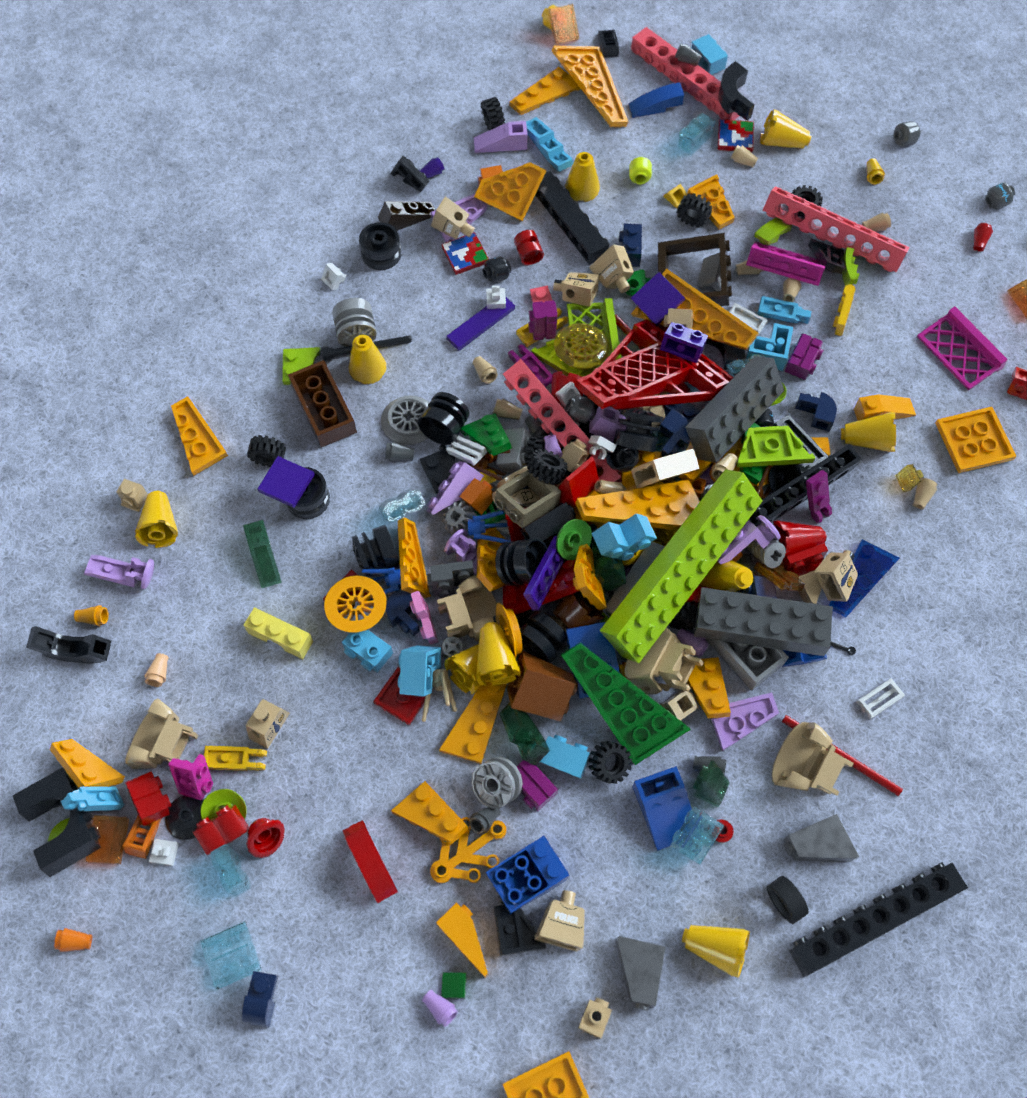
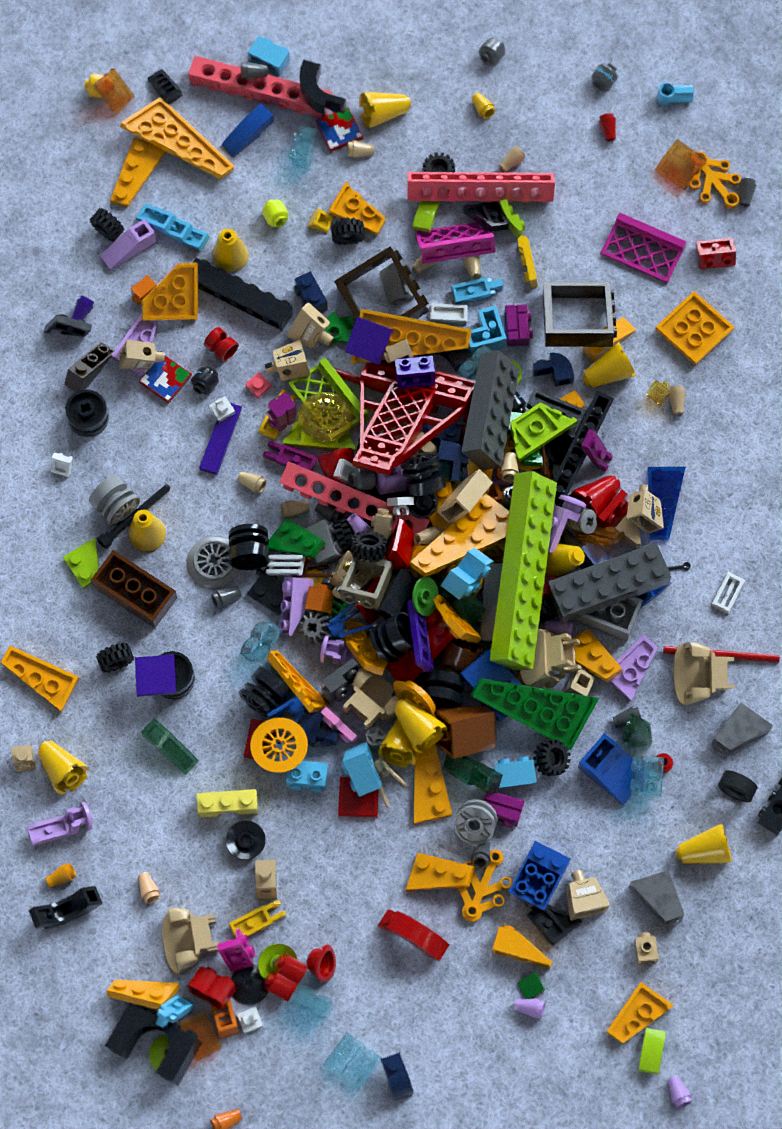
camera: 30 degrees left, 5 degrees up
(270, 667) = (238, 833): none -> black dish
(859, 388) = (578, 337): none -> dark brown window

